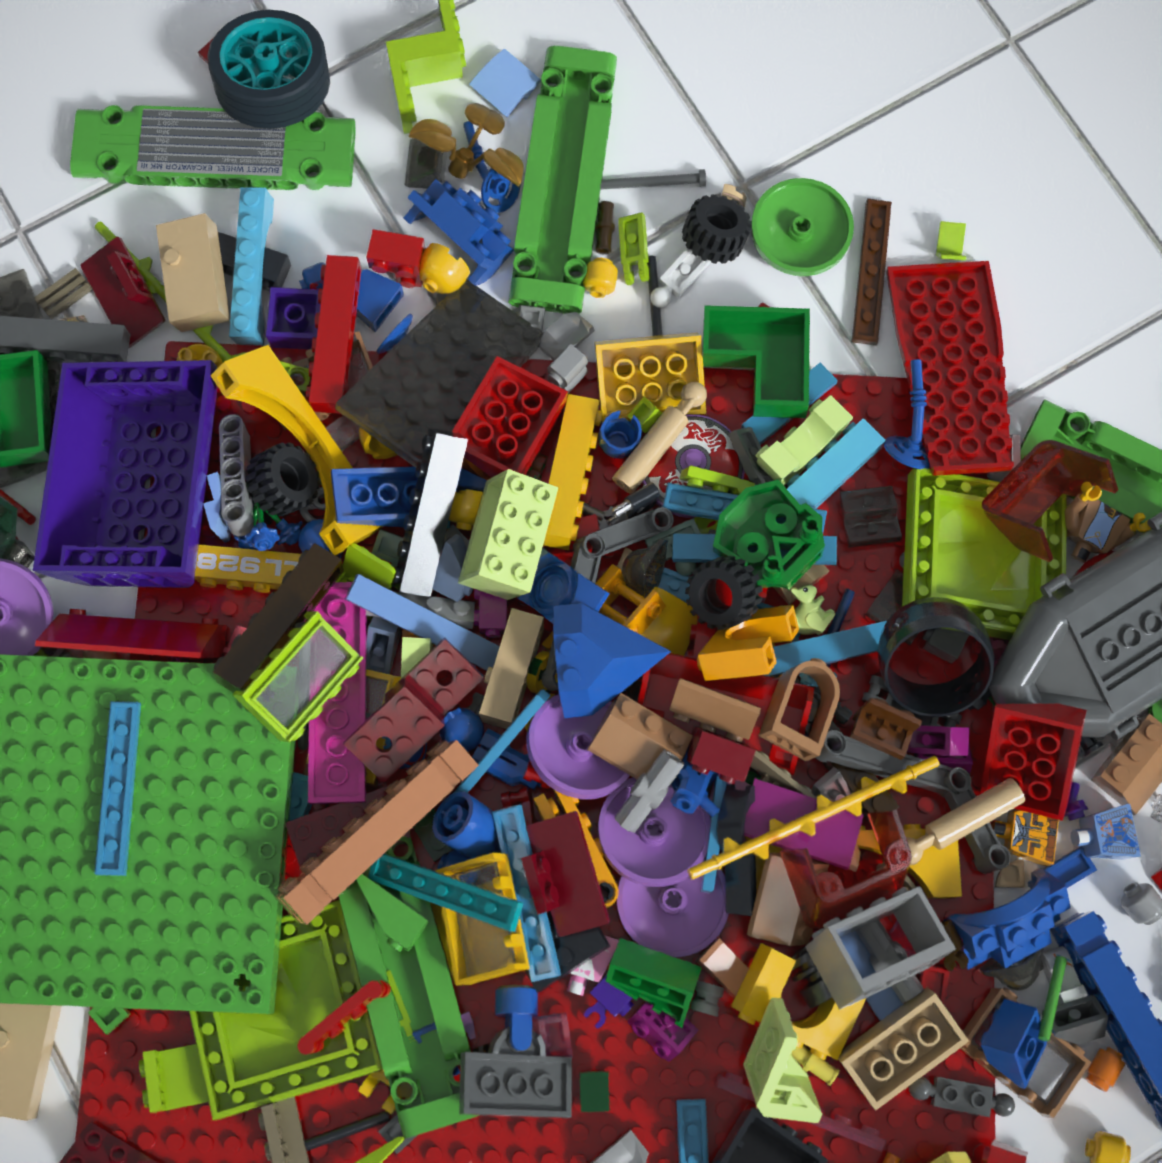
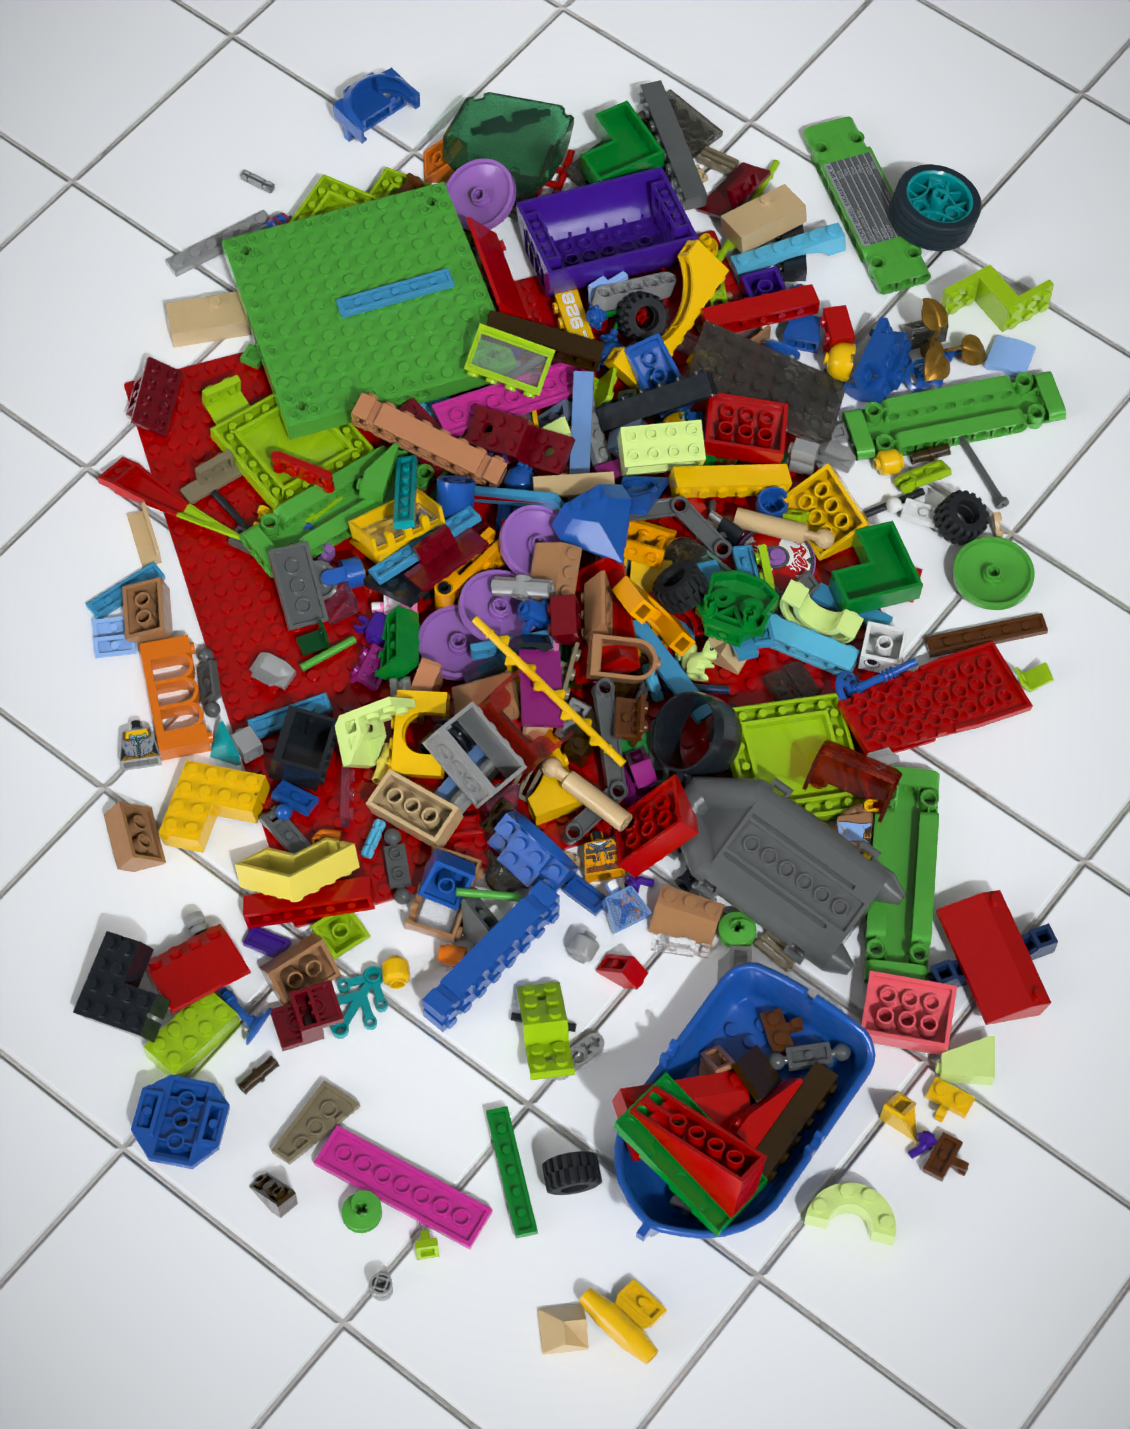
camera: 70 degrees right, 15 degrees down
(617, 1076) = (327, 653): none -> bright green bar
(867, 389) = (882, 647): none -> white brick
(913, 1115) = (373, 838): none -> medium azure axle

